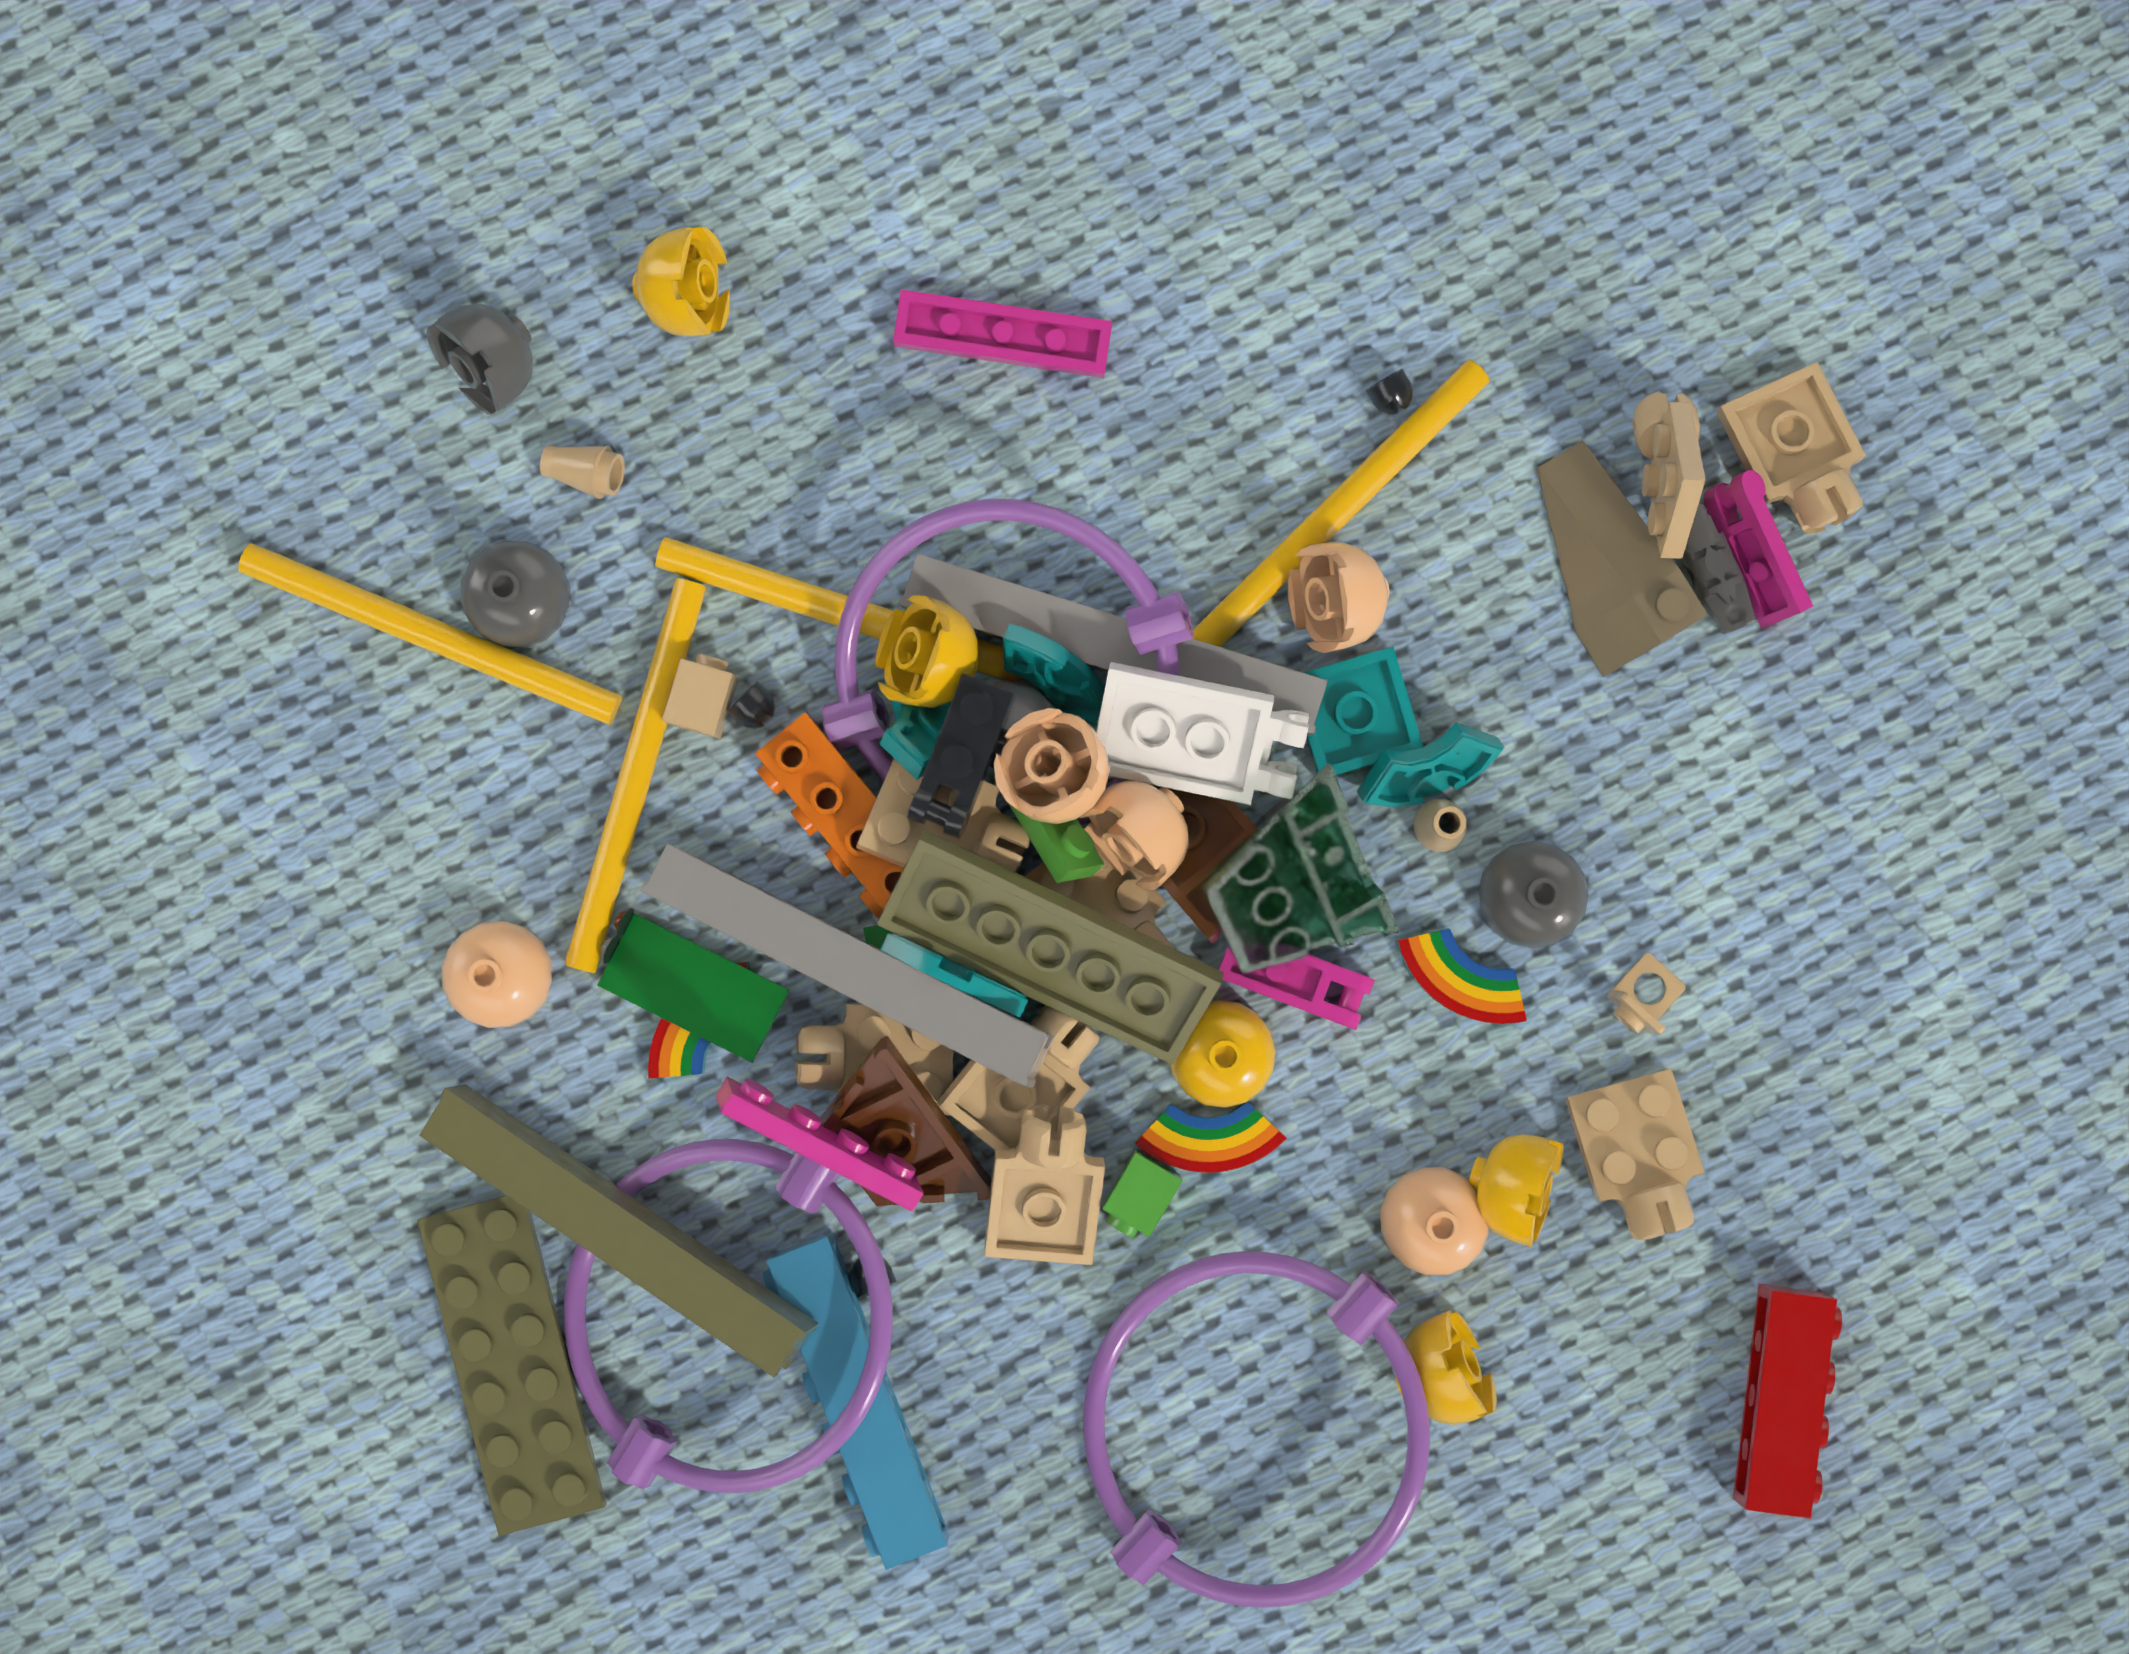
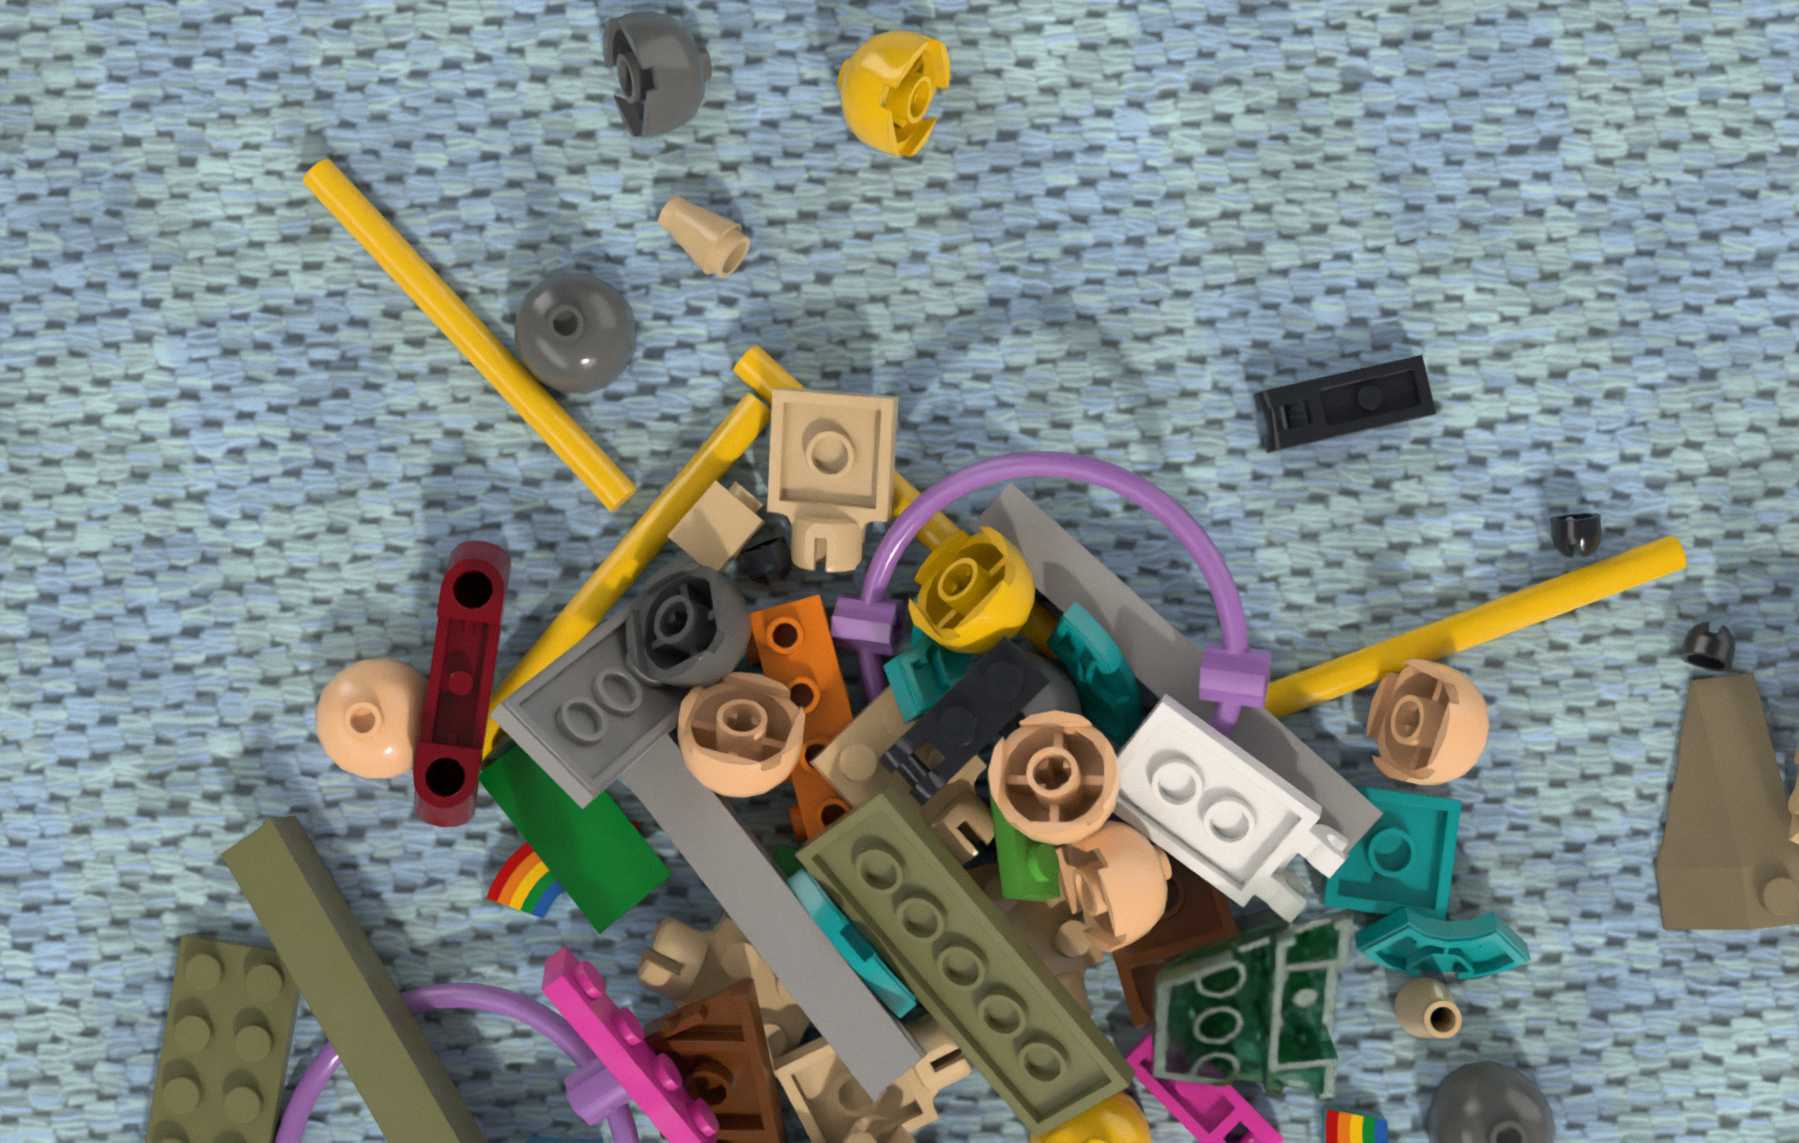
camera: 25 degrees right, 0 degrees up
(550, 914) = (460, 684): none -> dark red plate
(673, 867) = (591, 711): none -> light grey tile
(711, 783) = (688, 626): none -> dark grey cylinder
(770, 610) = (831, 471): none -> tan plate
(790, 849) = (740, 734): none -> light nougat cylinder
(1002, 333) = (1200, 291): dark pink plate -> none
(1160, 371) = (1347, 403): none -> black plate
(1537, 437) = (1709, 649): none -> black hinge

